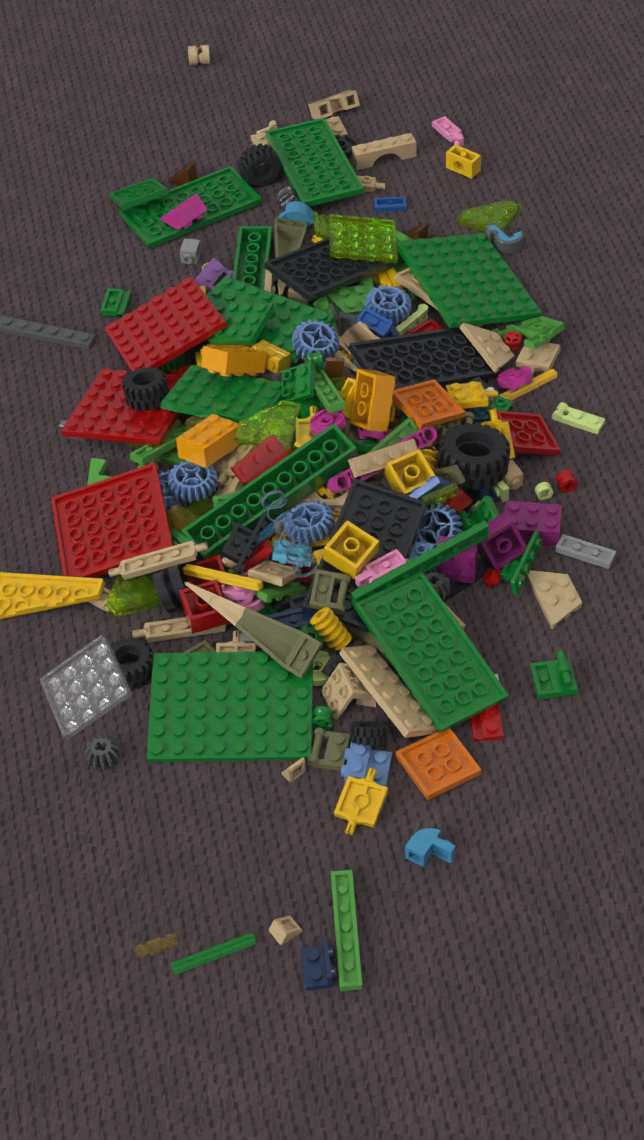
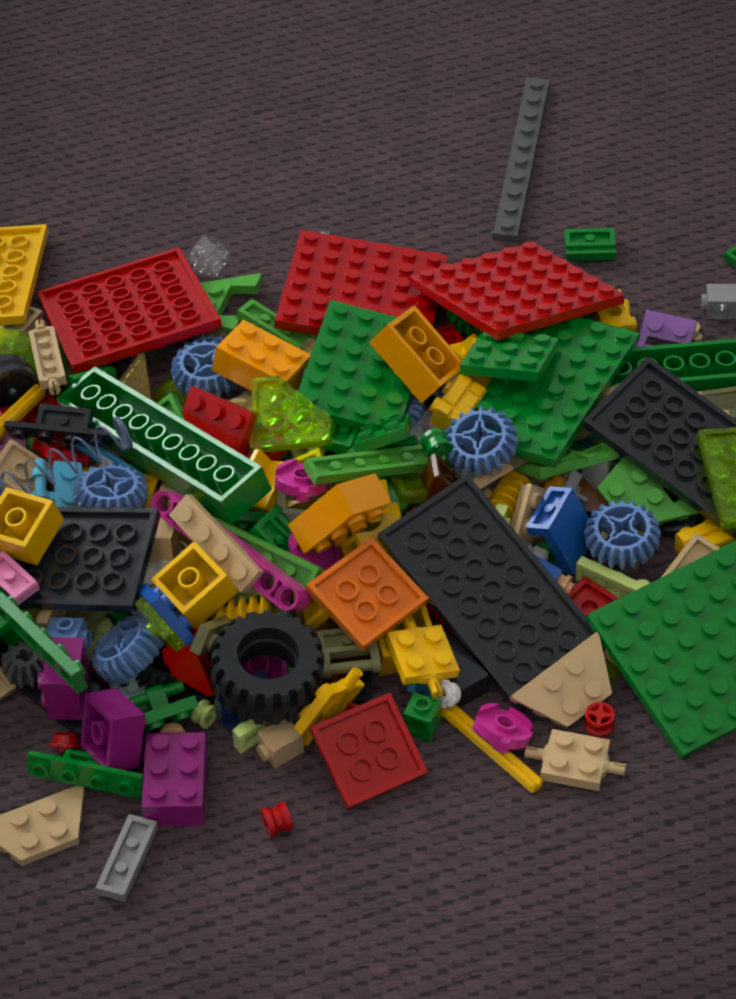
camera: 80 degrees right, 0 degrees up
(68, 477) = (208, 256): none -> clear brick
(145, 388) = (369, 283): black tyre -> none
(536, 330) = (626, 749): bright green wing -> none
(544, 490) = (253, 791): yellowish green bush -> none
(578, 418) = (431, 829): yellowish green plate -> none

